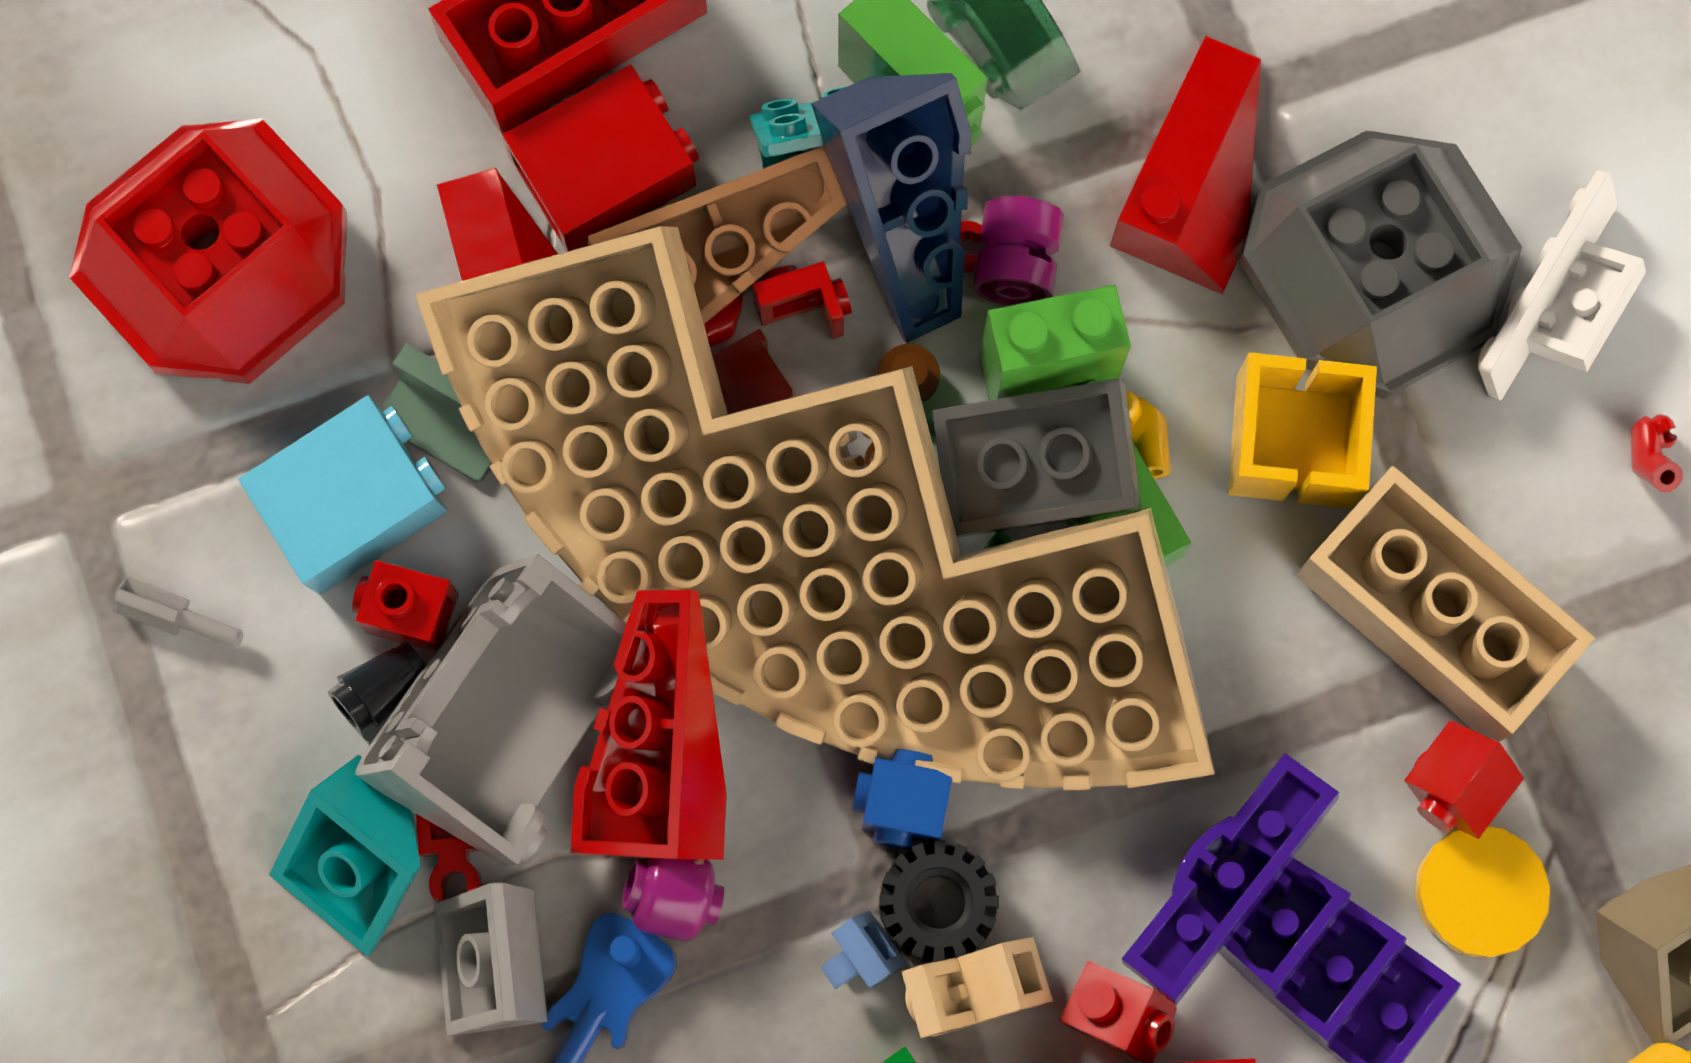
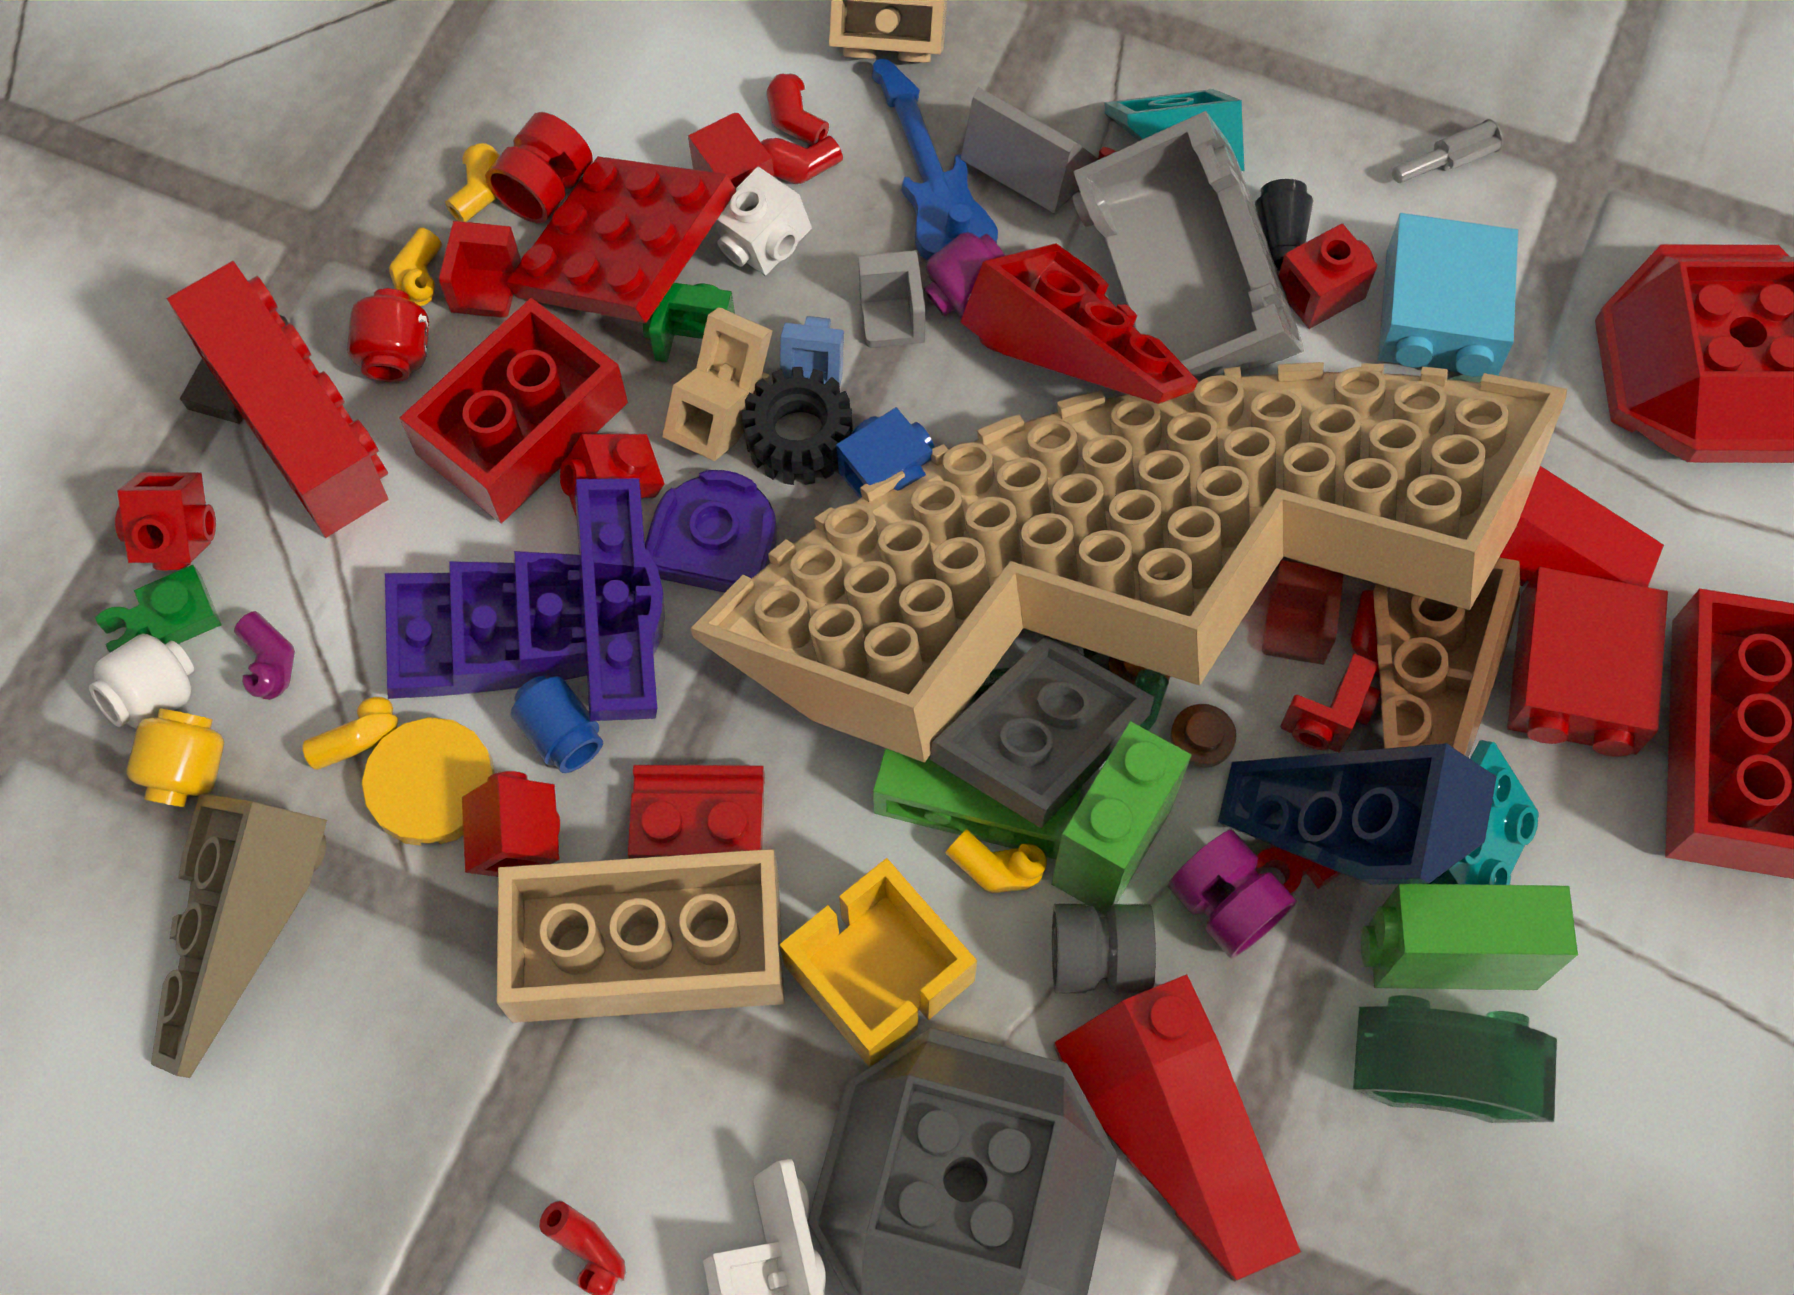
camera: 135 degrees right, 10 degrees down
(751, 937) = (891, 299): none -> light grey panel
(1087, 883) = (712, 531): none -> dark purple tile
(1151, 307) = (1107, 948): none -> dark grey wheel
(1311, 674) = (695, 810): none -> red plate
(1355, 836) = (556, 723): none -> blue brick
(1511, 976) = (354, 737): none -> yellow arm

